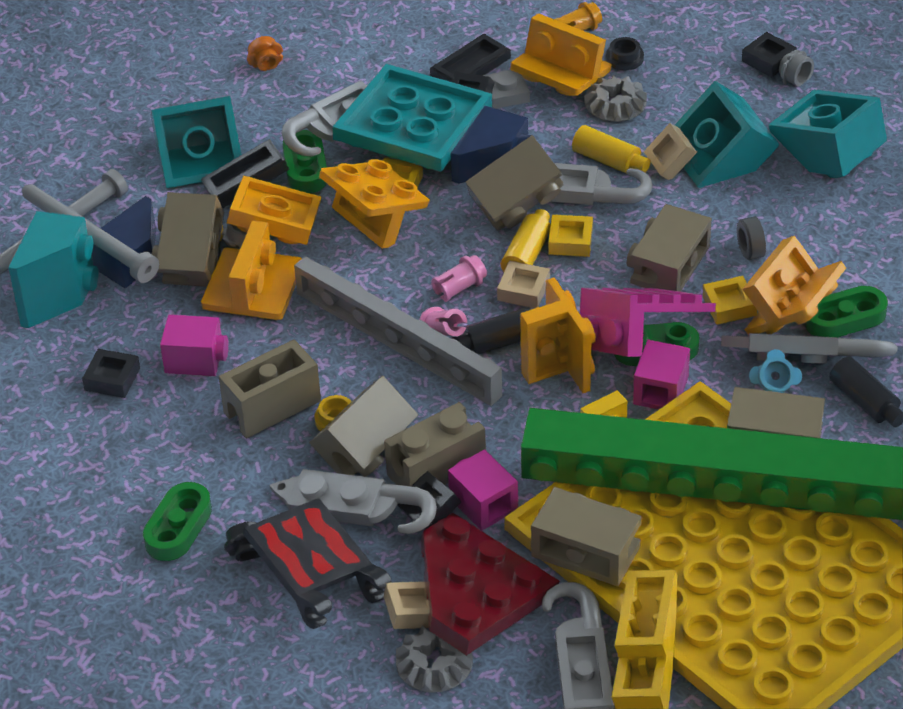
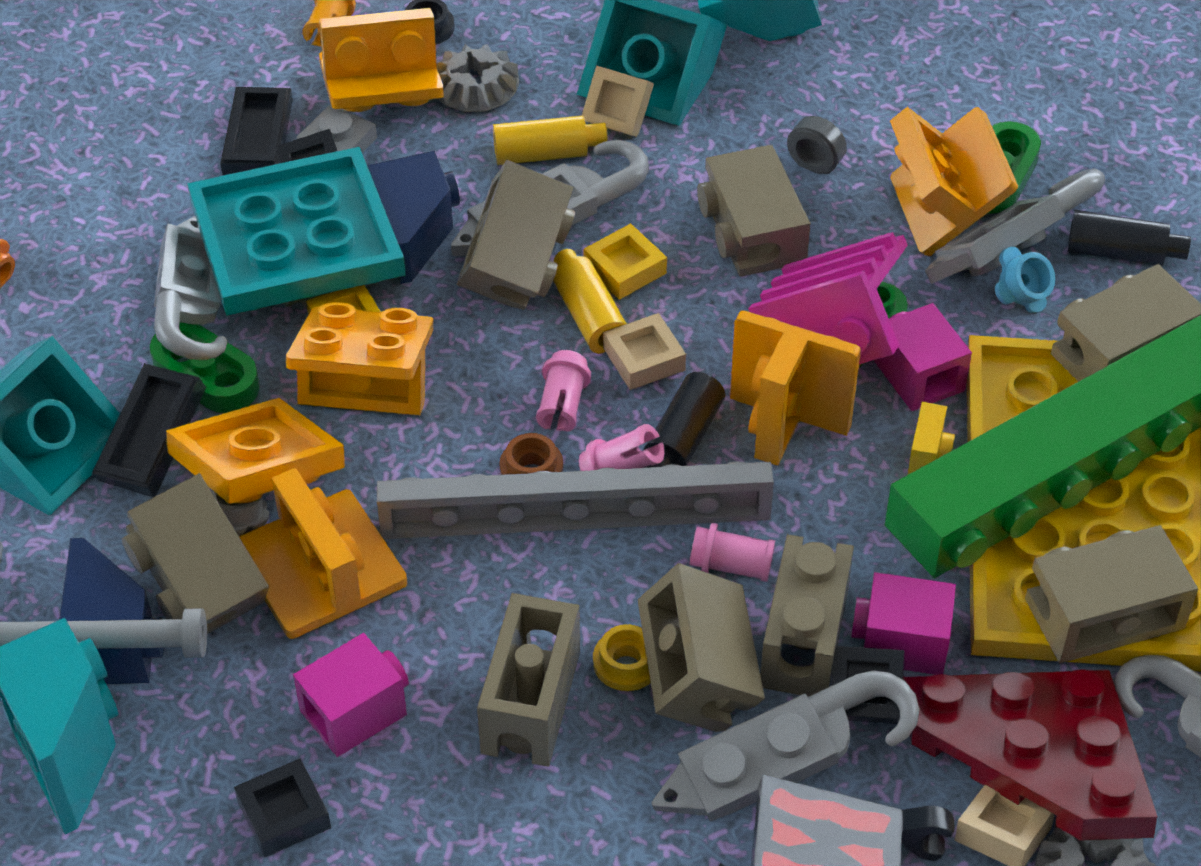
camera: 45 degrees left, 5 degrees up
(405, 298) = (530, 449): none -> dark orange plate
(437, 396) = (731, 553): none -> bright pink pin
(730, 300) = (874, 217): yellow plate -> none

